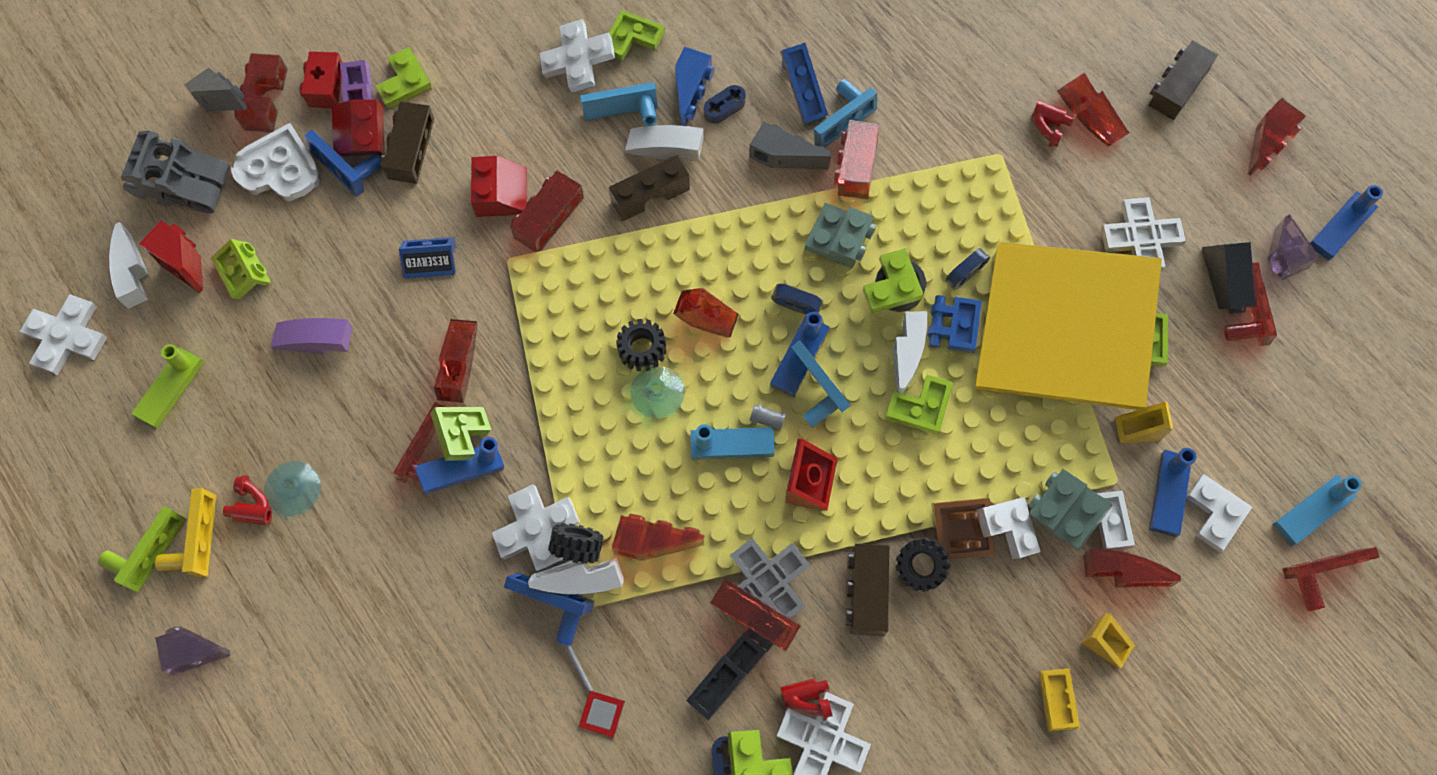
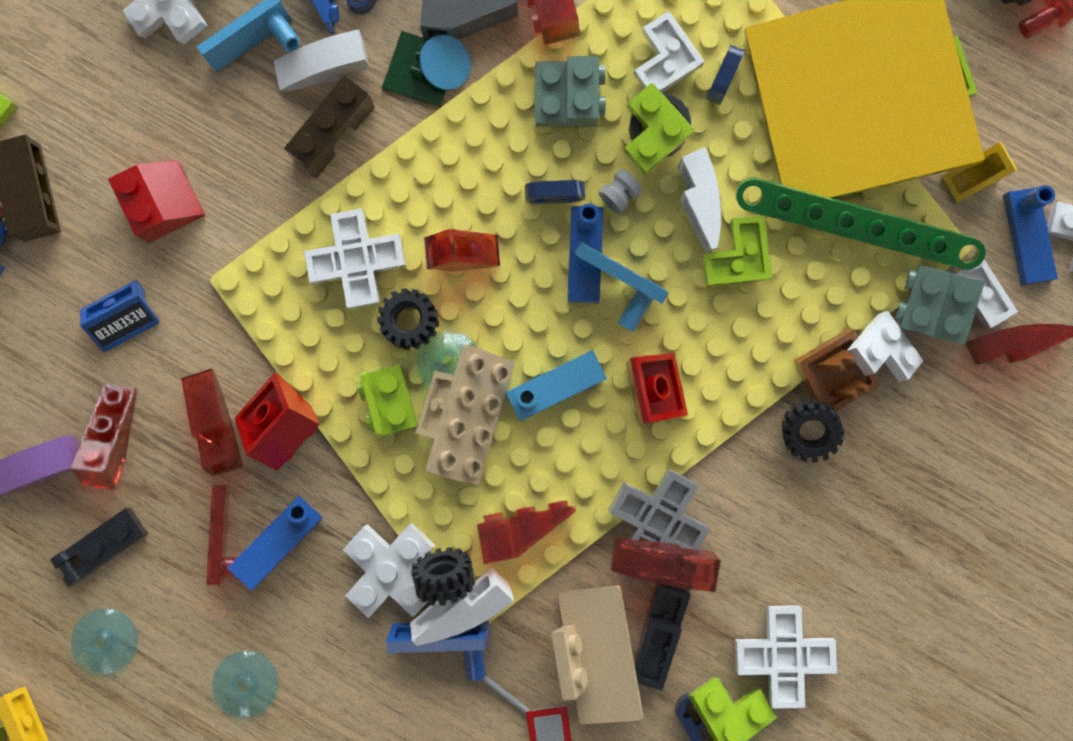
camera: 25 degrees left, 15 degrees up
(249, 513) = (81, 688): red plant -> none
(326, 415) = (99, 546): none -> black plate
(372, 339) = (106, 439): none -> clear red slope
(389, 578) = (257, 674): none -> clear light blue dish
(454, 428) = (247, 504): lime plate -> none
(504, 379) = (275, 423): none -> red slope
(547, 211) = (226, 204): clear red brick -> none
(596, 399) = (387, 401): none -> lime bracket
(622, 286) = (355, 259): none -> white plate
(651, 431) = (464, 413): none -> tan bracket
(666, 667) = (596, 656): none -> tan bracket
(737, 176) = (405, 74): none -> dark green piece
(757, 178) = (445, 62): none -> dark azure piece
(767, 417) = (581, 341): light grey pin -> none
(798, 694) = (746, 614): red plant -> none
(847, 319) = (620, 191): none -> light grey wheel
(868, 590) = (766, 481): dark brown brick -> none
(934, 240) = (674, 51): none -> white plate
(963, 326) = (747, 144): blue plate -> none
(1030, 421) = (860, 223): none -> green plate
(1059, 700) = (1001, 508): yellow plate -> none
(1109, 640) = (1025, 424): yellow slope -> none

